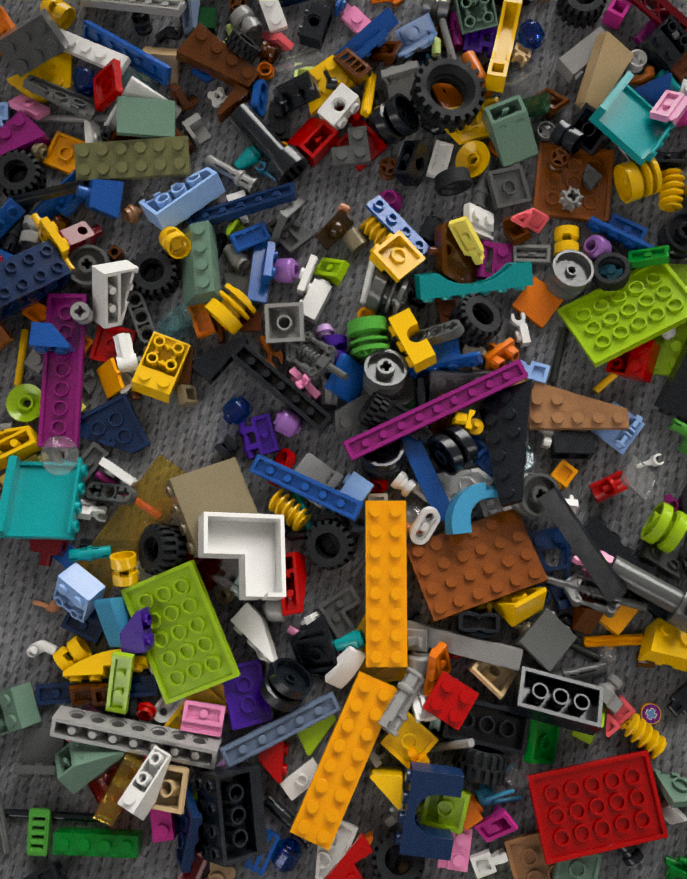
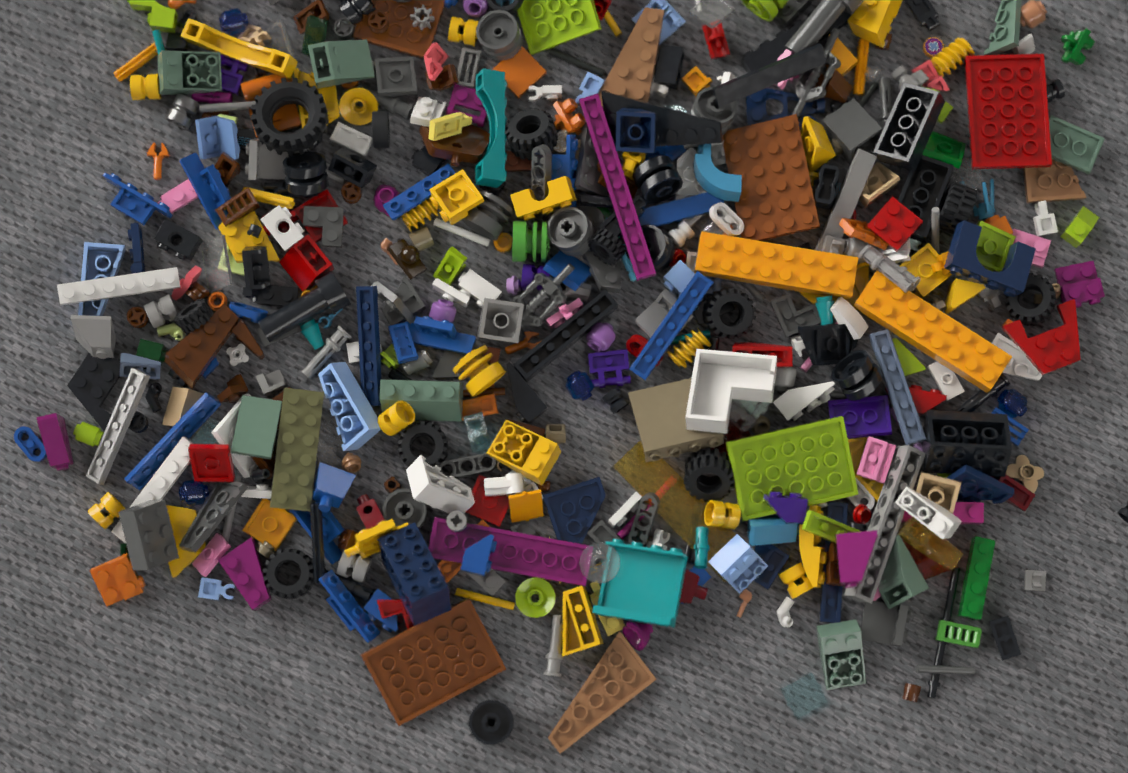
camera: 85 degrees left, 0 degrees up
(90, 710) = (854, 556): none -> magenta slope
(495, 415) = (635, 130): none -> dark blue slope
(496, 824) = (1012, 205): dark pink slope -> none

